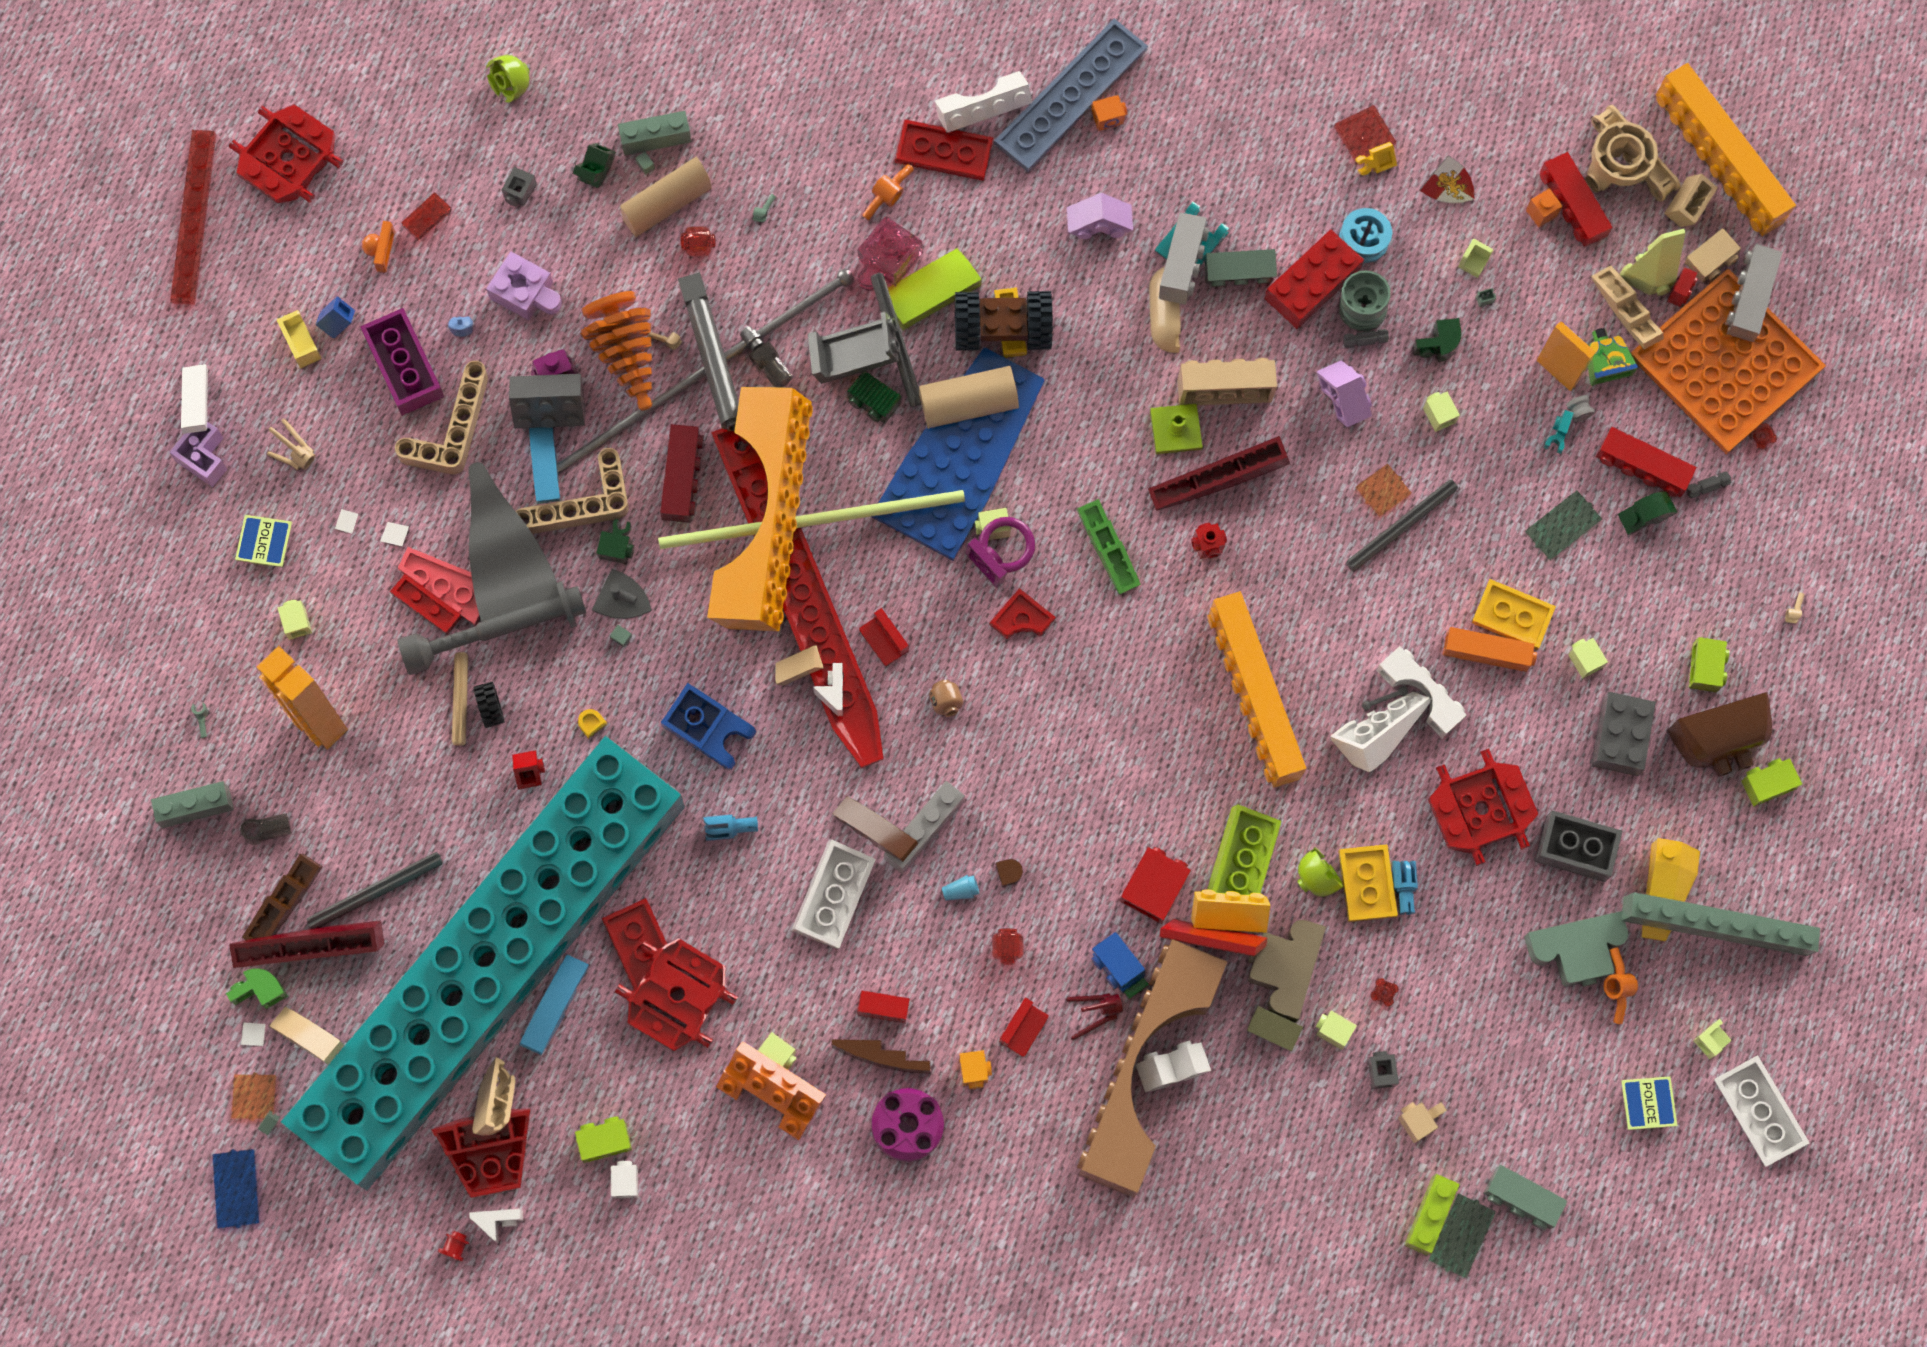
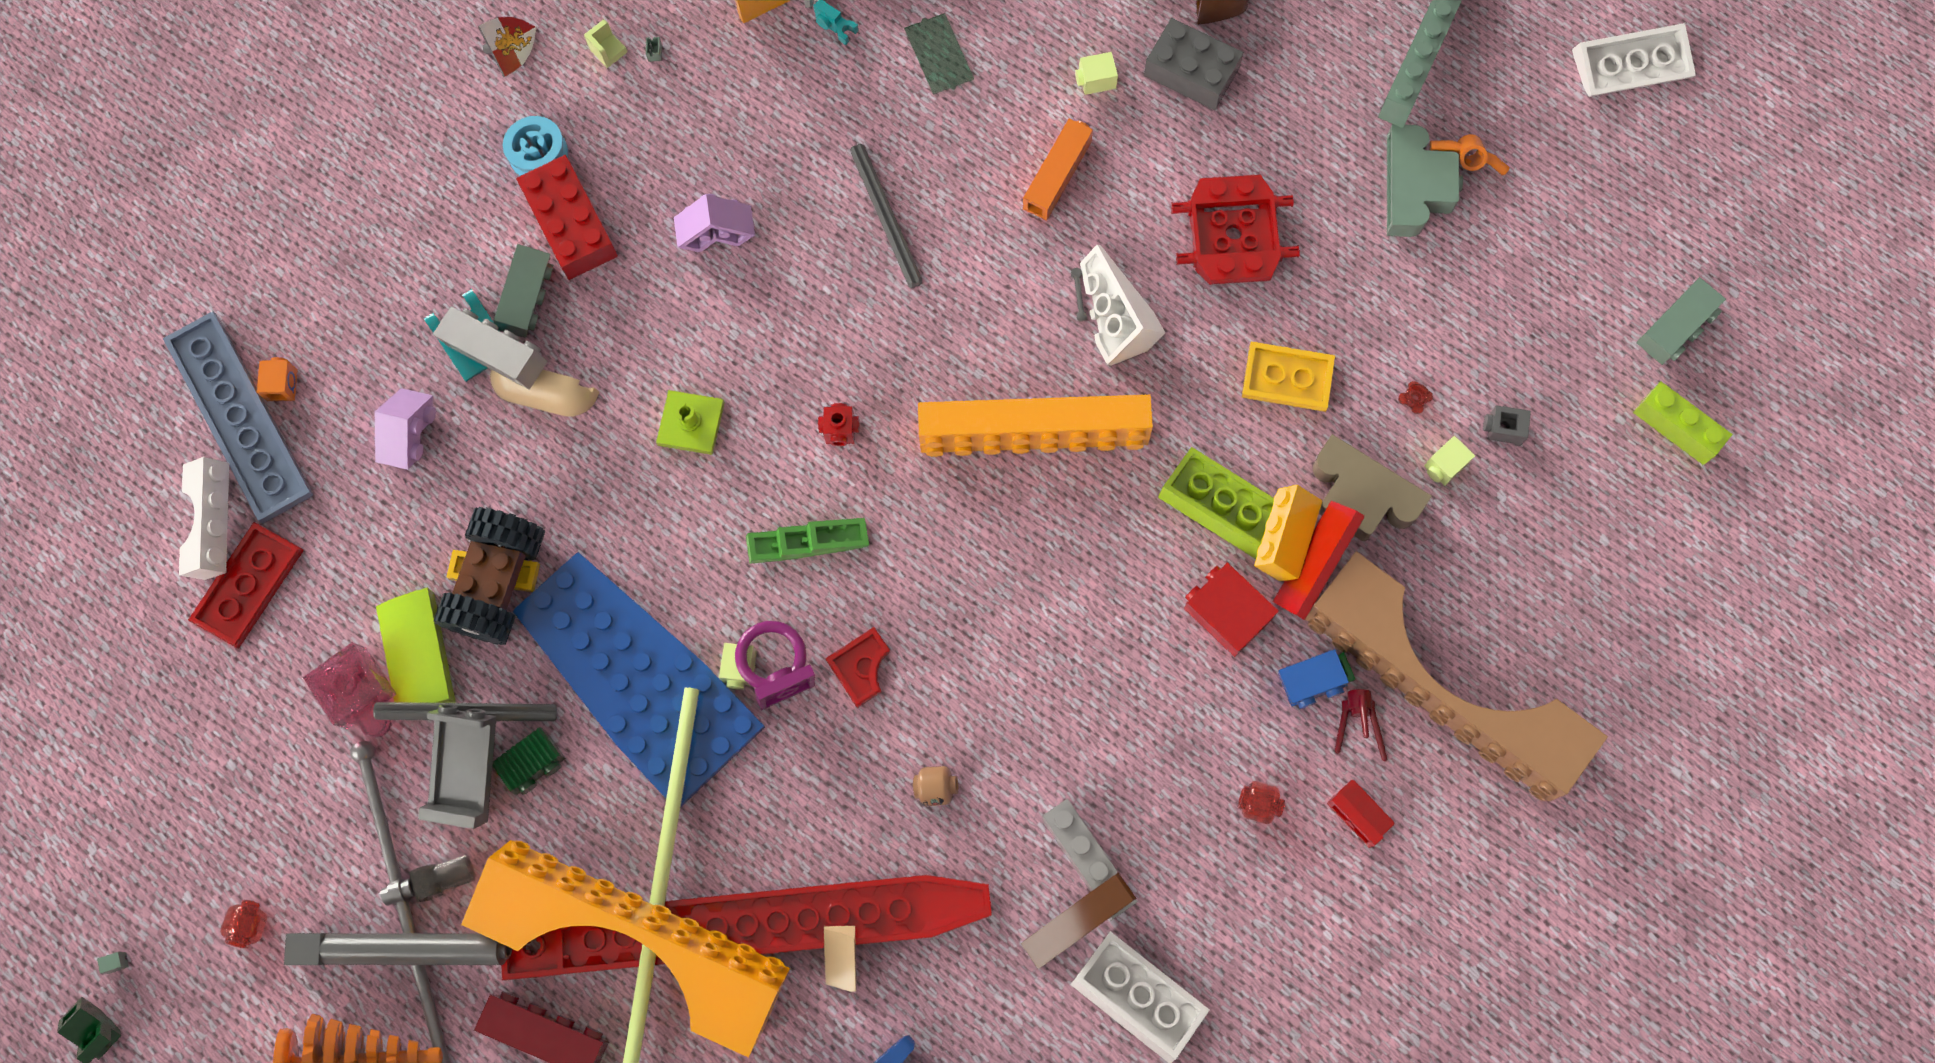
camera: 65 degrees left, 0 degrees up
(654, 133) = (77, 939): sand green brick -> none
(665, 197) = (168, 949): tan brick -> none
(672, 341) = (363, 994): tan hand -> none
(760, 214) = (239, 833): sand green hand -> none
(832, 695) = (895, 922): white slope -> none
(870, 1052) = (1352, 1006): reddish brown slope -> none
(883, 1007) = (1296, 976): red panel -> none
(884, 638) = (836, 839): red panel -> none
(887, 191) = (271, 667): orange piece -> none
(890, 1123) = (1456, 996): magenta piece -> none
(961, 889) = (1175, 837): medium azure cone -> none
(969, 397) = (570, 646): tan brick -> none
(974, 1069) = (1400, 886): light orange brick -> none
(1009, 871) = (1167, 773): reddish brown tile -> none
(1182, 1064) = (1450, 652): white brick -> none
(1221, 474) = (764, 388): dark red slope -> none
(1227, 382) = (657, 345): tan brick -> none
(1274, 1028) = (1431, 527): olive hinge -> none
(1318, 875) = (1268, 425): lime cylinder -> none
(1364, 132) = (415, 114): clear red tile -> none
(1365, 338) = (655, 186): dark grey axle -> none
(1366, 289) = (613, 169): sand green wheel -> none
(1380, 159) = (452, 105): yellow plate -> none
(1383, 490) = (838, 222): clear orange piece -> none
(1401, 669) = (1117, 236): white arch -> none
(1405, 884) = (1300, 336): dark azure arm -> none
(1419, 1121) = (1572, 403): tan brick -> none
(1441, 410) = (768, 133): yellowish green brick -> none
(1445, 341) = (690, 104): dark green brick -> none
(1462, 1235) = (1709, 396): clear green piece -> none
(1513, 614) = (1024, 132): yellow plate -> none
(1578, 846) = (1307, 145): dark grey brick -> none
(1649, 1103) = (1604, 165): piece -> none
(1670, 876) = (1361, 72): yellow wedge -> none
(1712, 1040) = (1547, 85): yellowish green panel -> none

